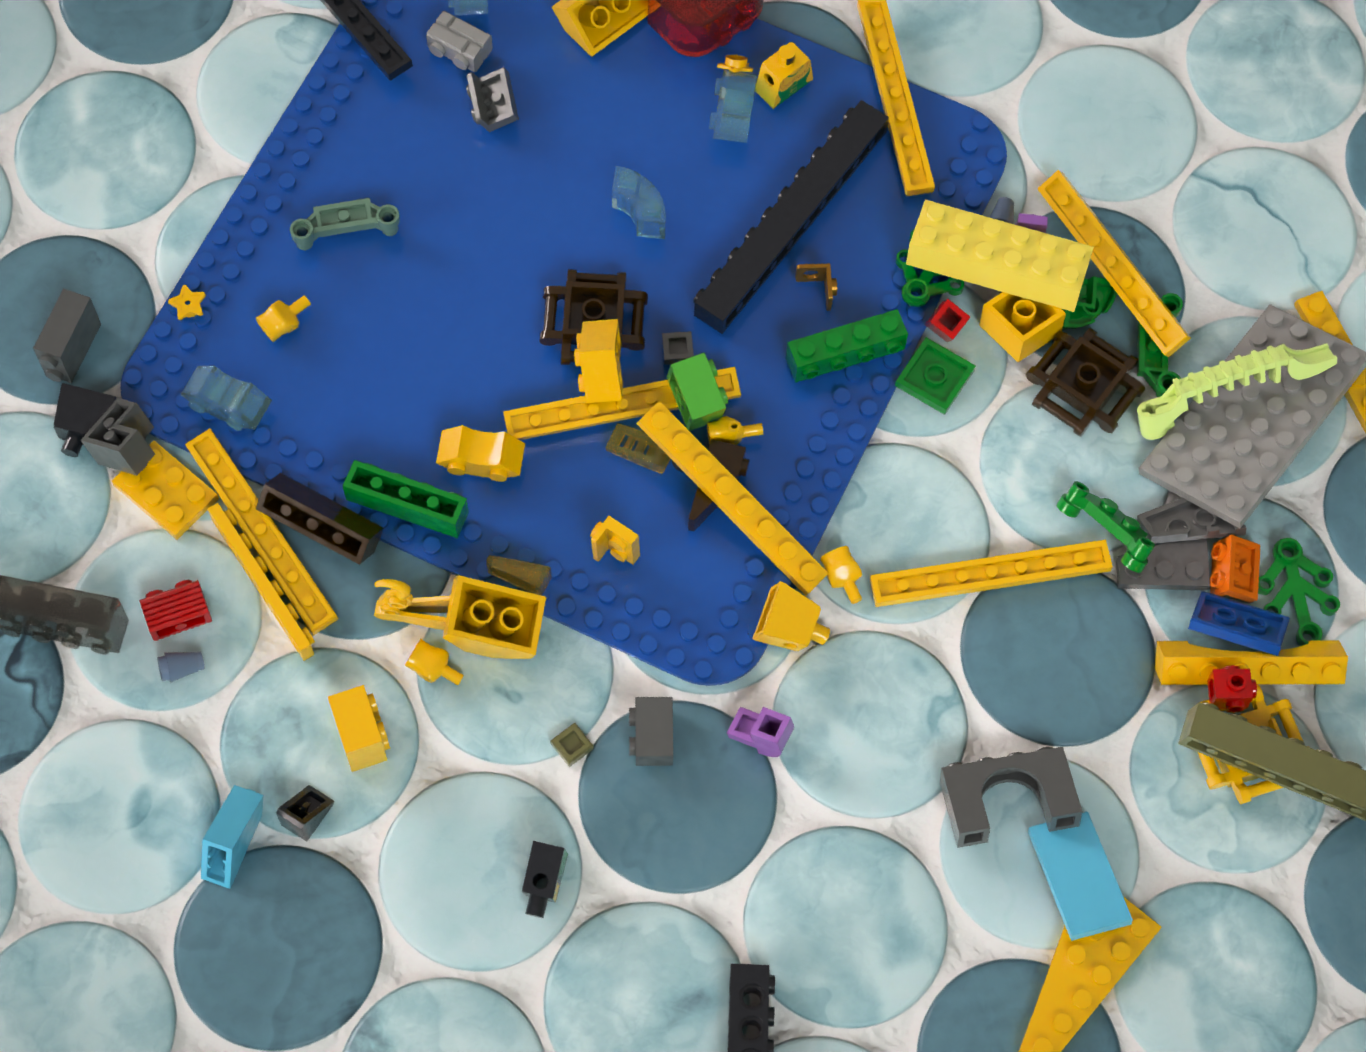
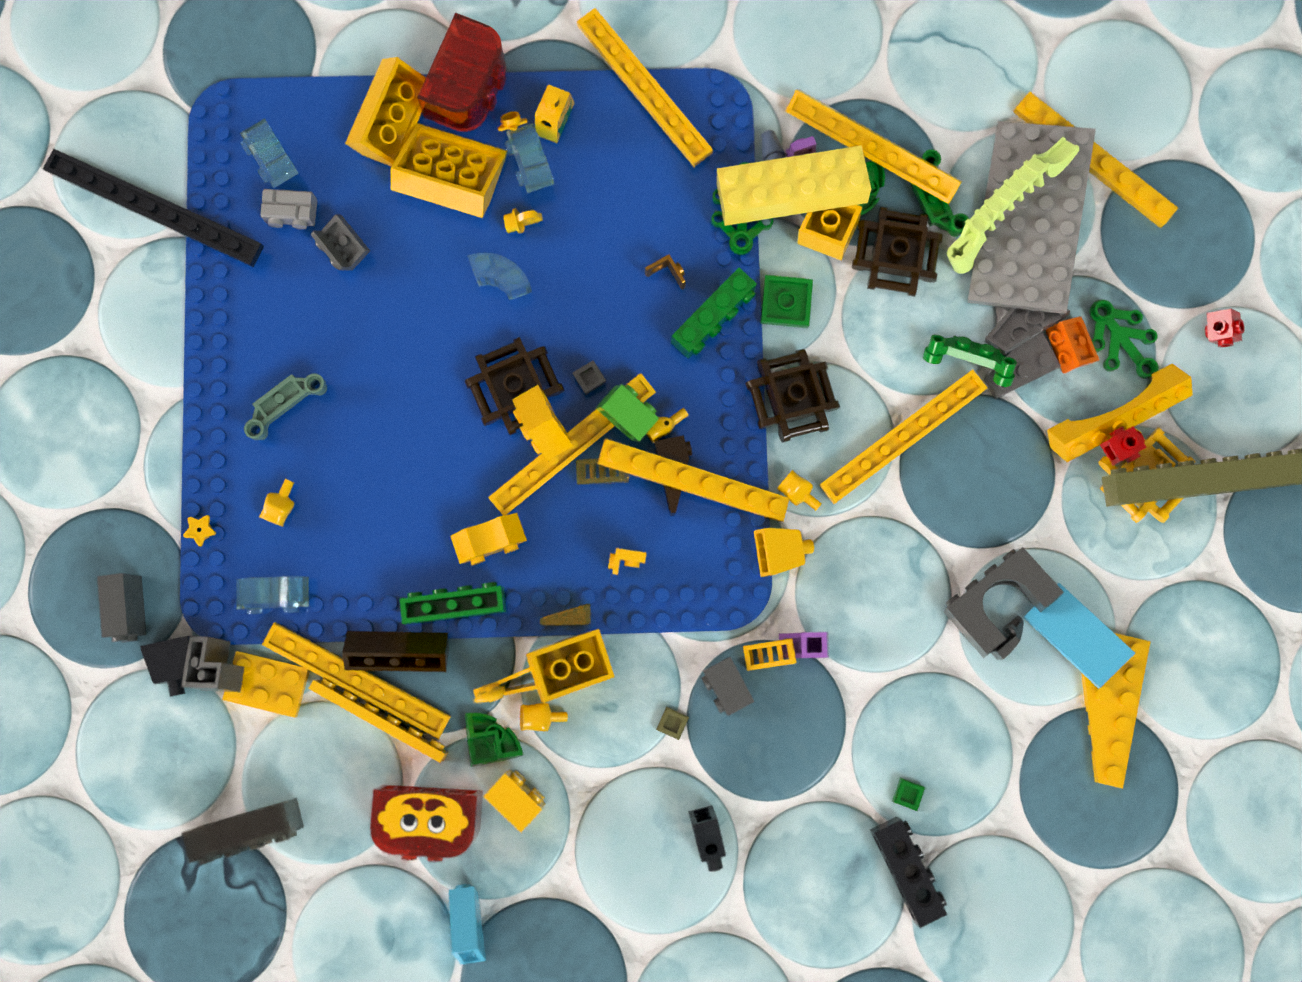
camera: 30 degrees left, 15 degrees up
(175, 609) = (327, 775): red brick -> none
(179, 665) = (354, 816): sand blue cone -> none
(254, 701) = (425, 821): none -> clear red brick
(304, 812) = (509, 878): black slope -> none
(365, 662) = (489, 741): none -> green brick
(642, 80) = (447, 170): none -> yellow slope
(689, 162) = (517, 221): none -> yellow piece
(700, 707) = (750, 660): none -> yellow slope
(790, 217) = (618, 227): black brick -> none
(794, 953) = (908, 794): none -> green tile
(890, 471) = (793, 394): none -> dark brown brick
(947, 320) = (776, 254): red brick -> none
(991, 847) = (1014, 631): none -> dark grey slope
(1239, 623) = (1099, 387): blue tile -> none

